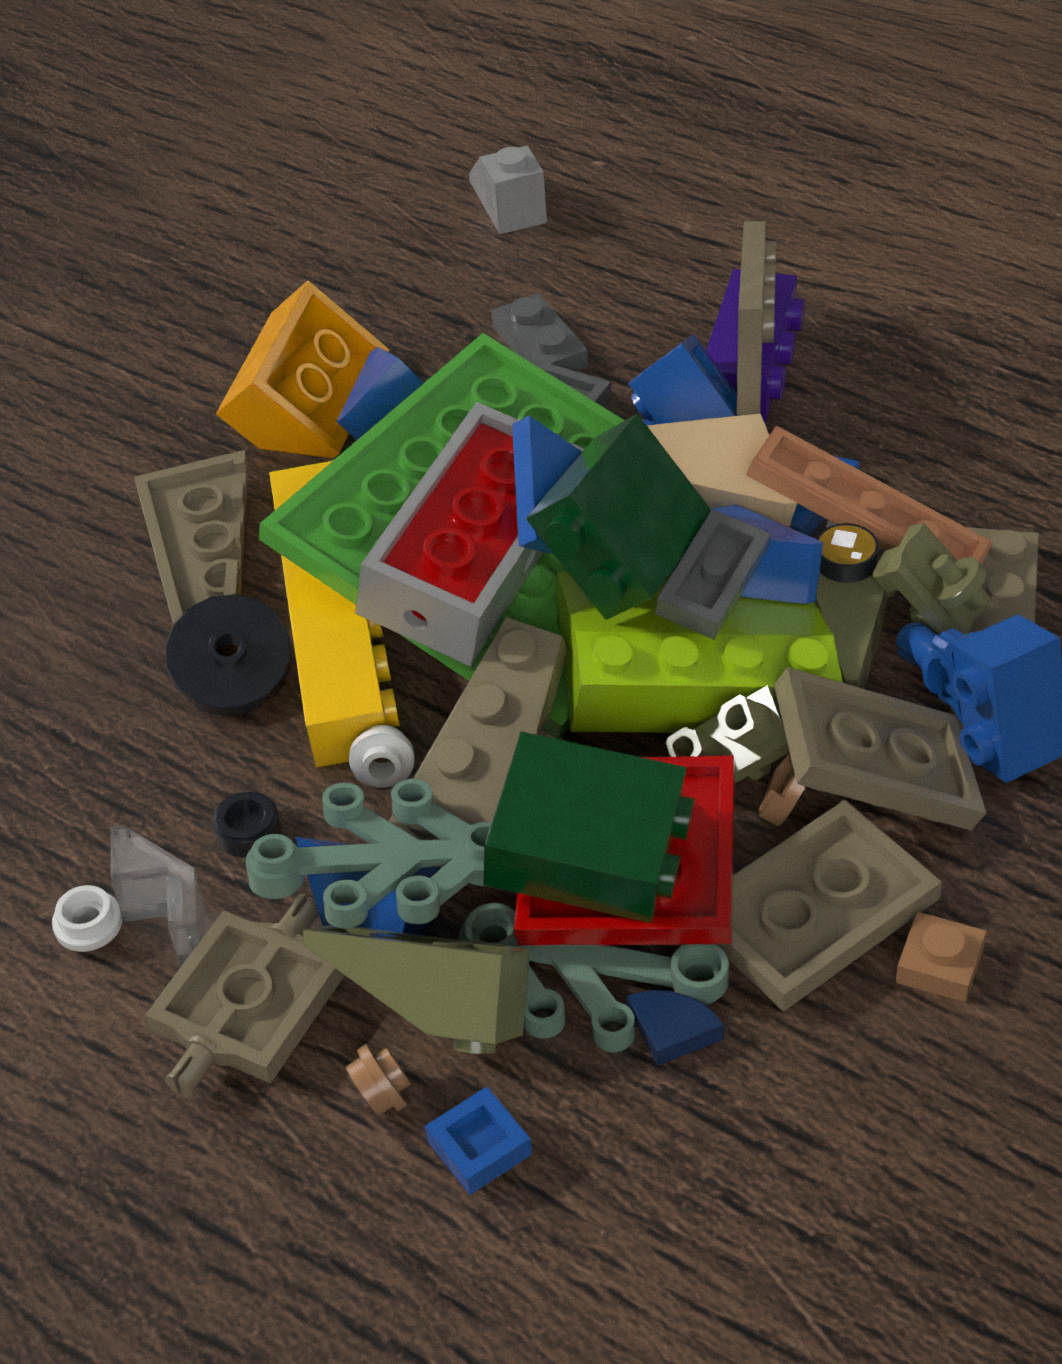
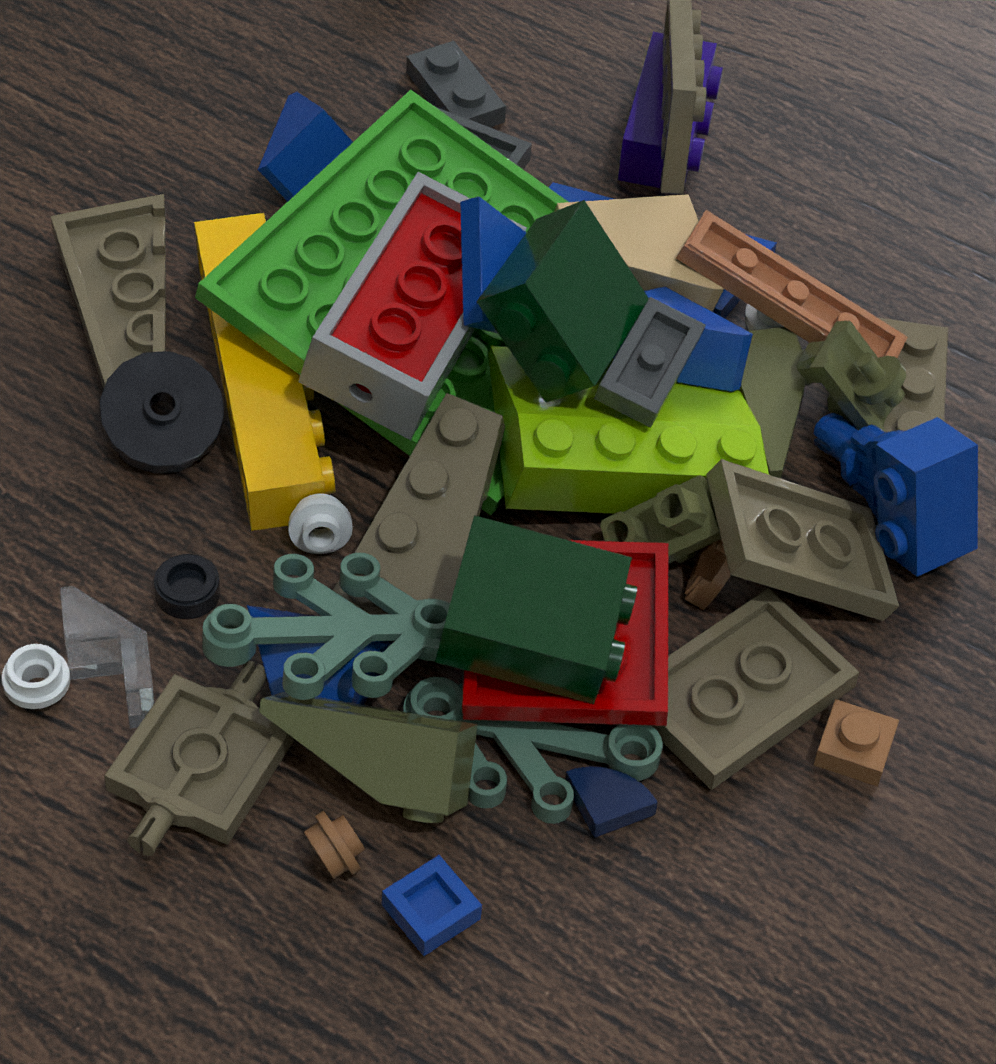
camera: 10 degrees left, 5 degrees up
(299, 377) = (215, 117): light orange slope -> none
(683, 387) = (608, 159): blue slope -> none
(848, 552) = (774, 342): tile -> none

